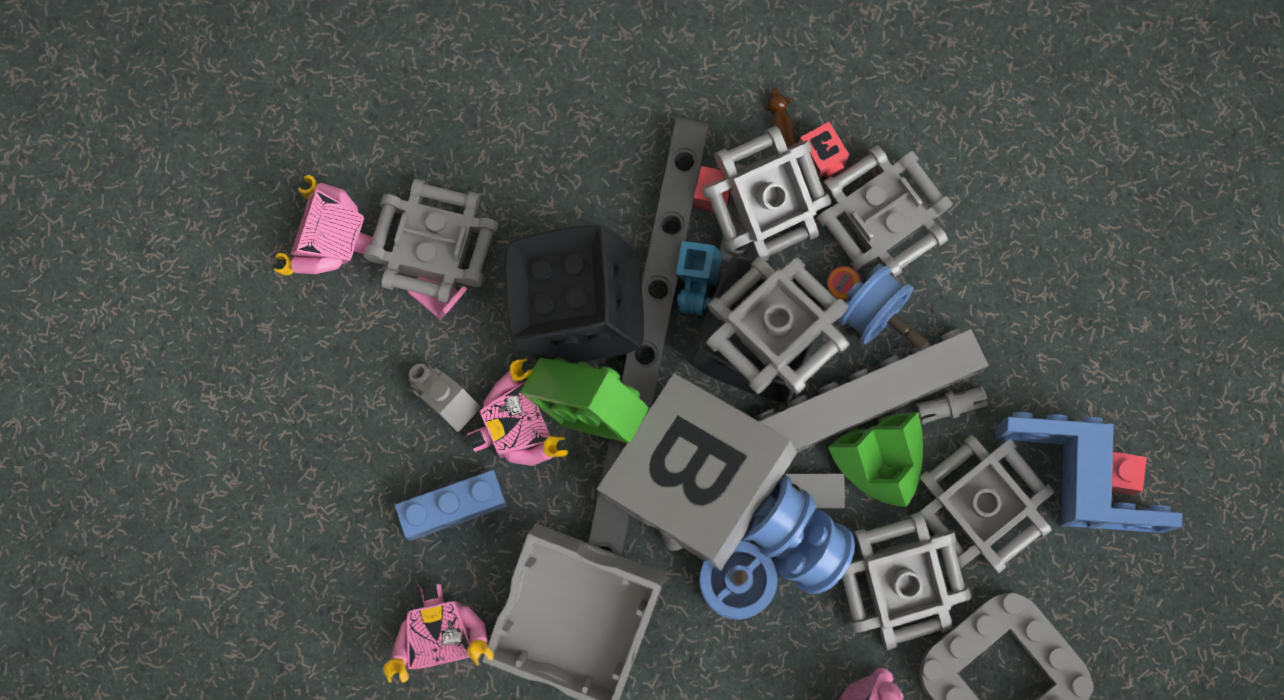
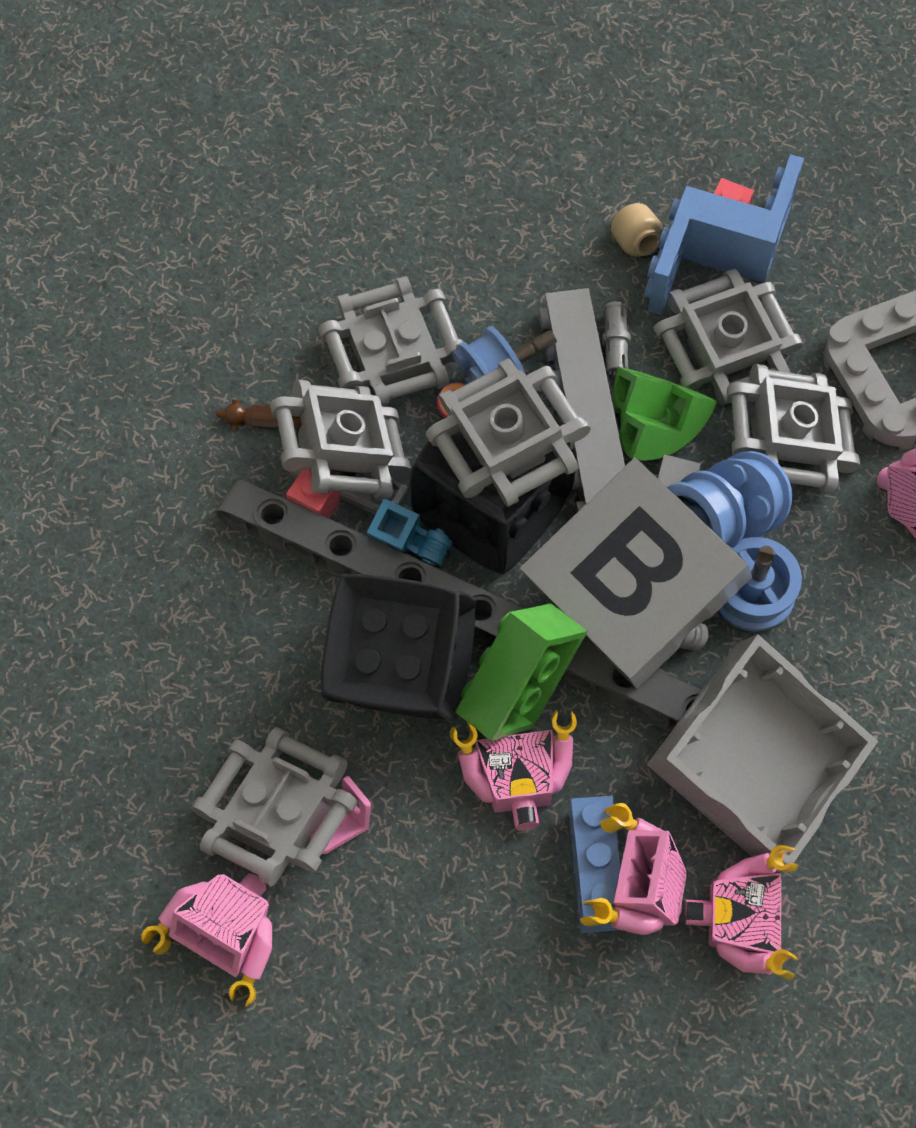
camera: 75 degrees left, 15 degrees down
(436, 548) = (648, 881): none -> bright pink torso
(443, 395) = (465, 838): light grey brick -> none
(827, 151) = (305, 368): coral brick -> none
(1073, 395) = (637, 230): none -> tan head

